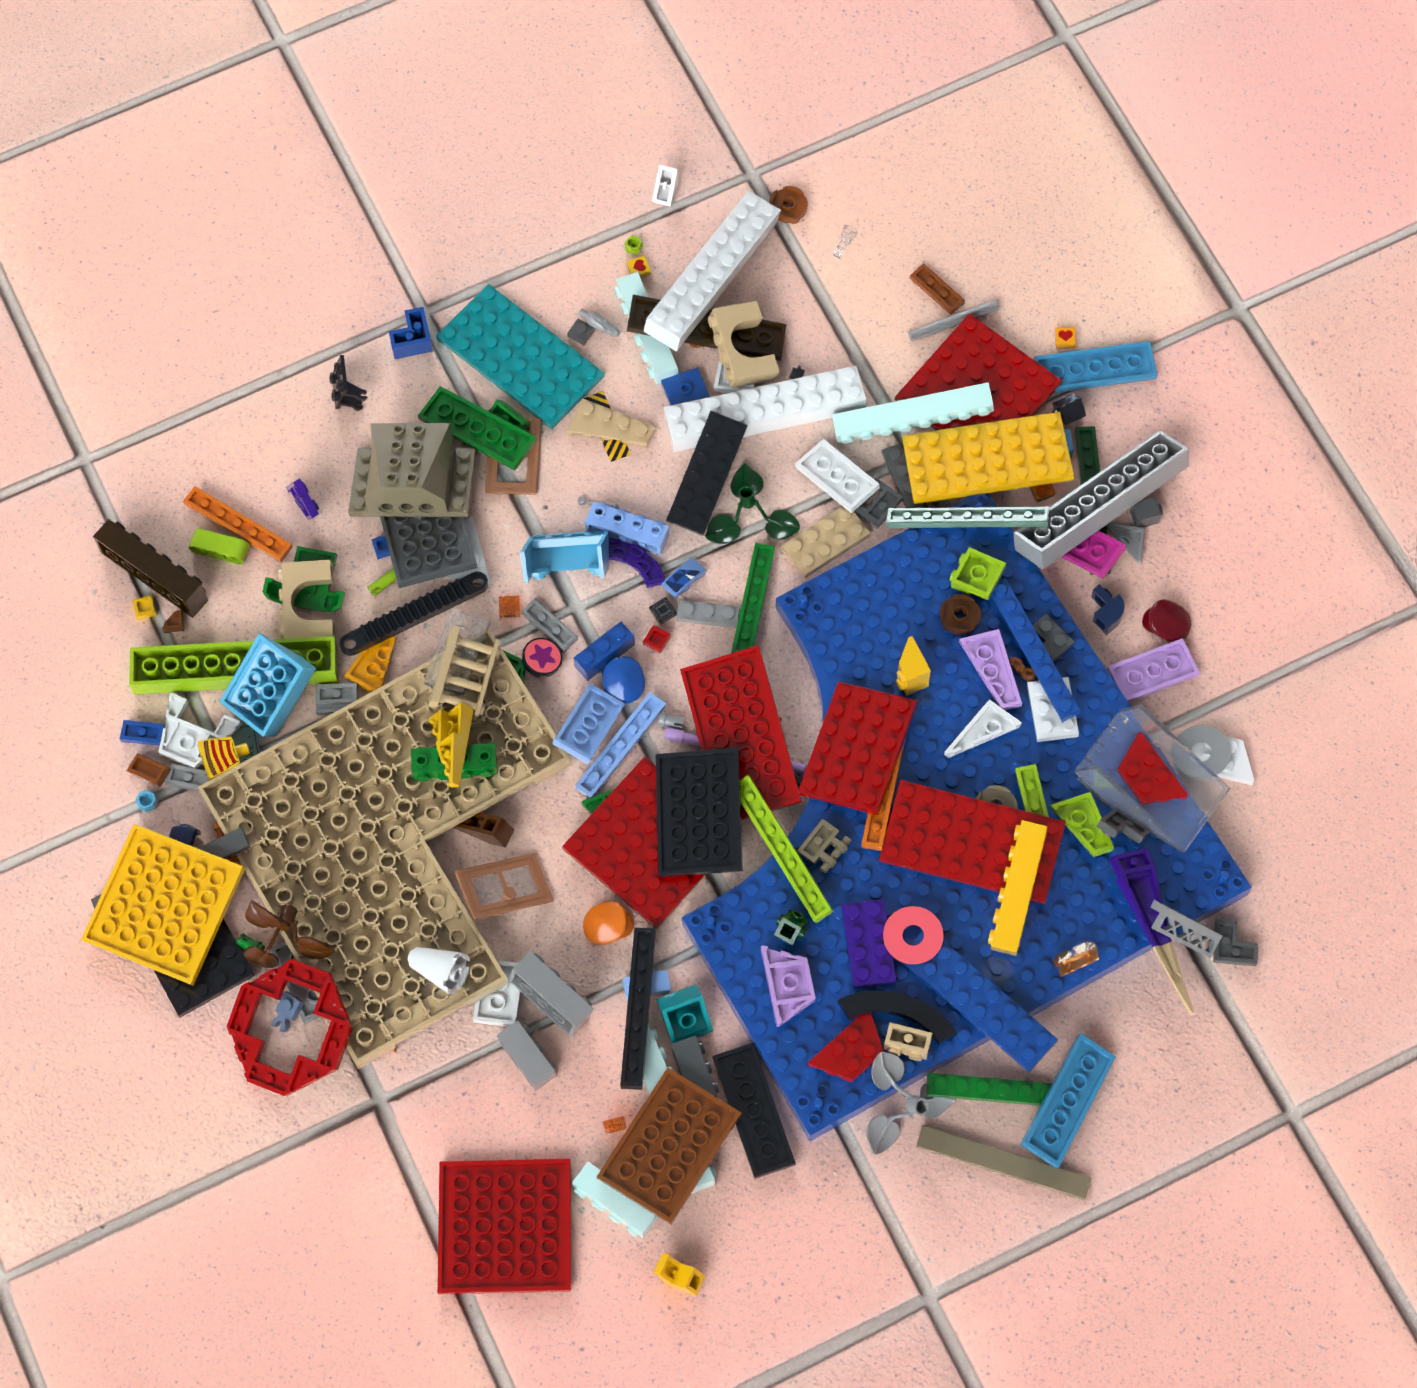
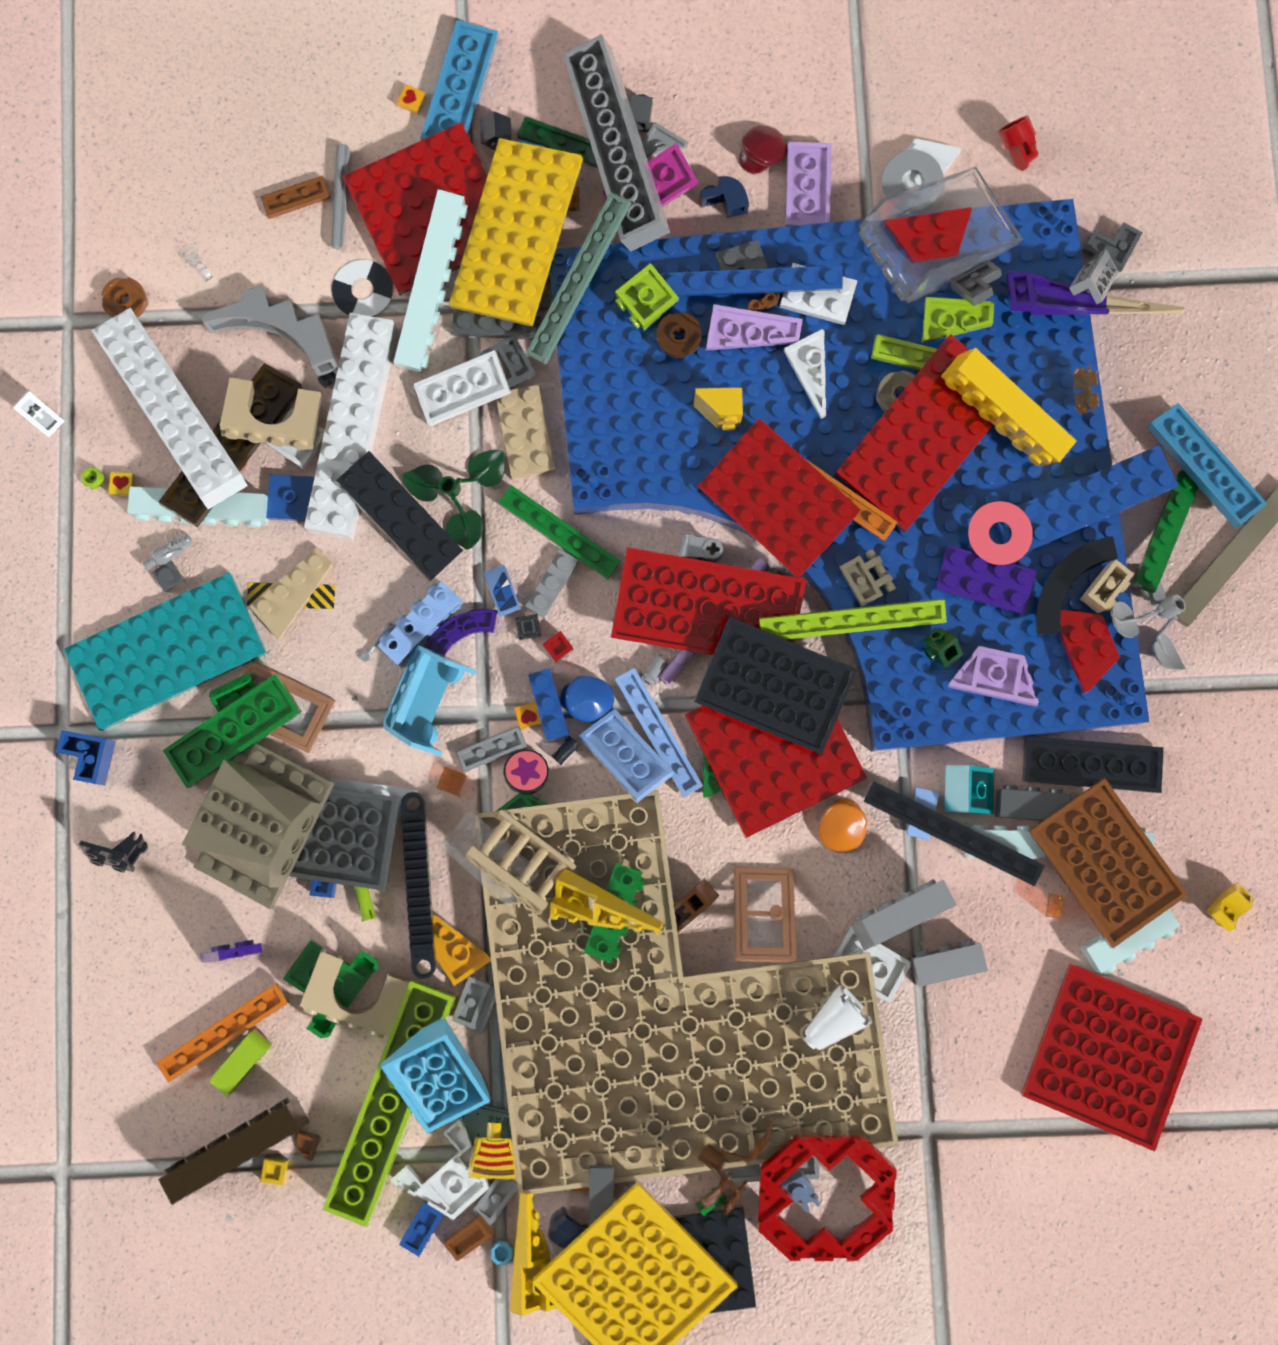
camera: 70 degrees left, 15 degrees up
(153, 817) = (529, 1259): none -> yellow wedge
(575, 681) = (565, 750): none -> black pin
(586, 638) = (528, 716): none -> light orange tile
(791, 713) = (698, 548): none -> light grey piece
(825, 302) = (281, 319): none -> light grey arch
(881, 354) = (367, 270): none -> sticker
(1289, 819) = (1014, 135): none -> red piece

